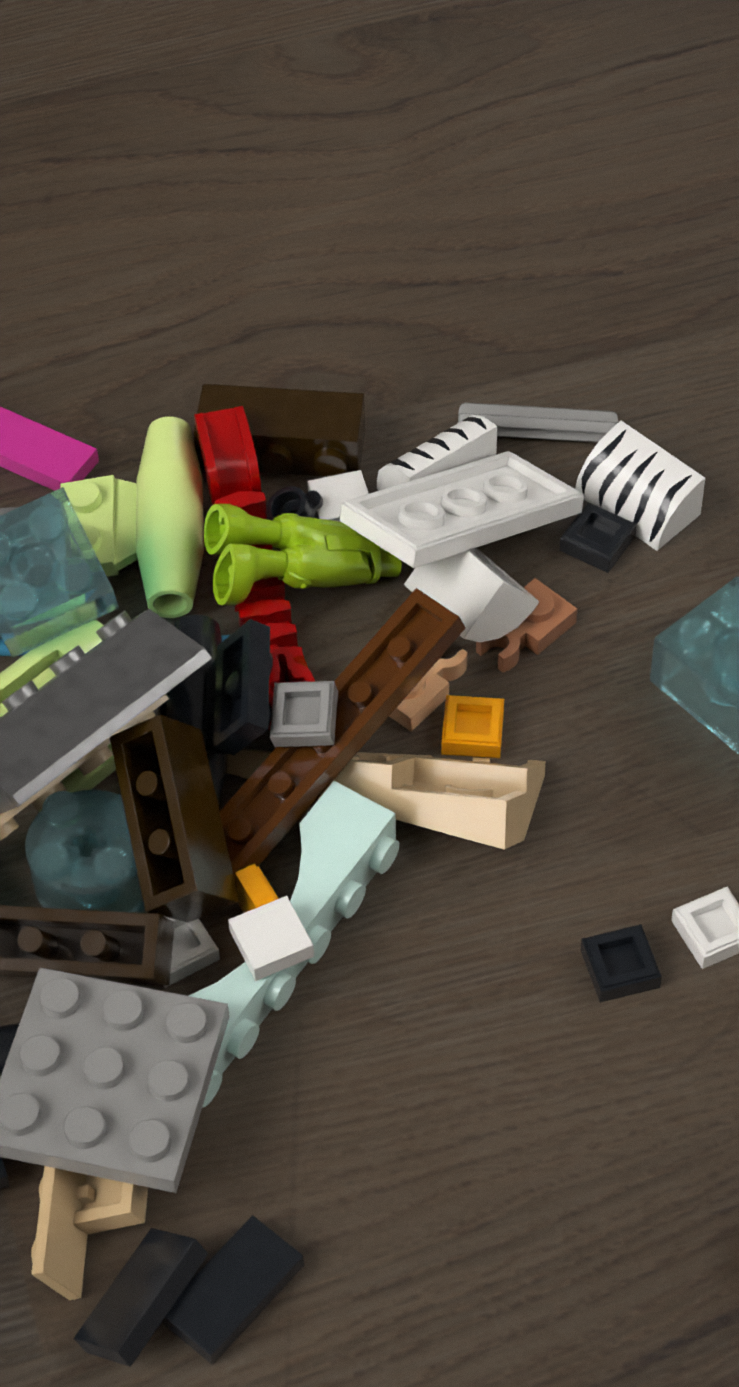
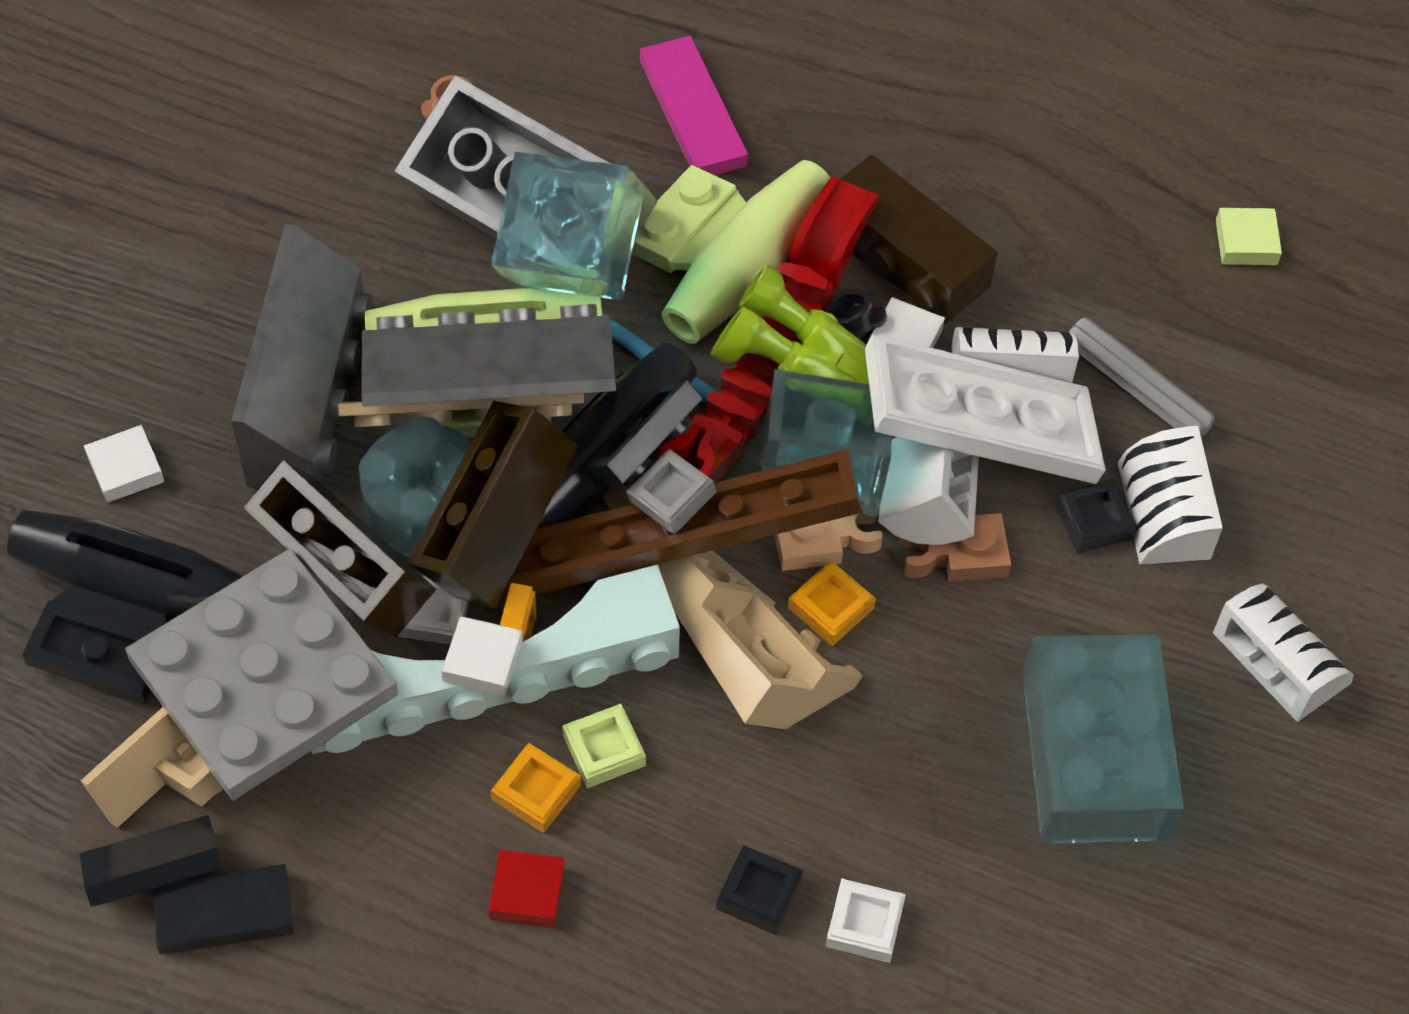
camera: 35 degrees right, 5 degrees up
(353, 596) = (824, 416): none -> clear light blue brick
(386, 1015) = (536, 787): none -> light orange tile
(407, 947) = (604, 745): none -> yellowish green tile
(453, 1091) = (526, 888): none -> red tile
(516, 278) = (1248, 236): none -> yellowish green tile

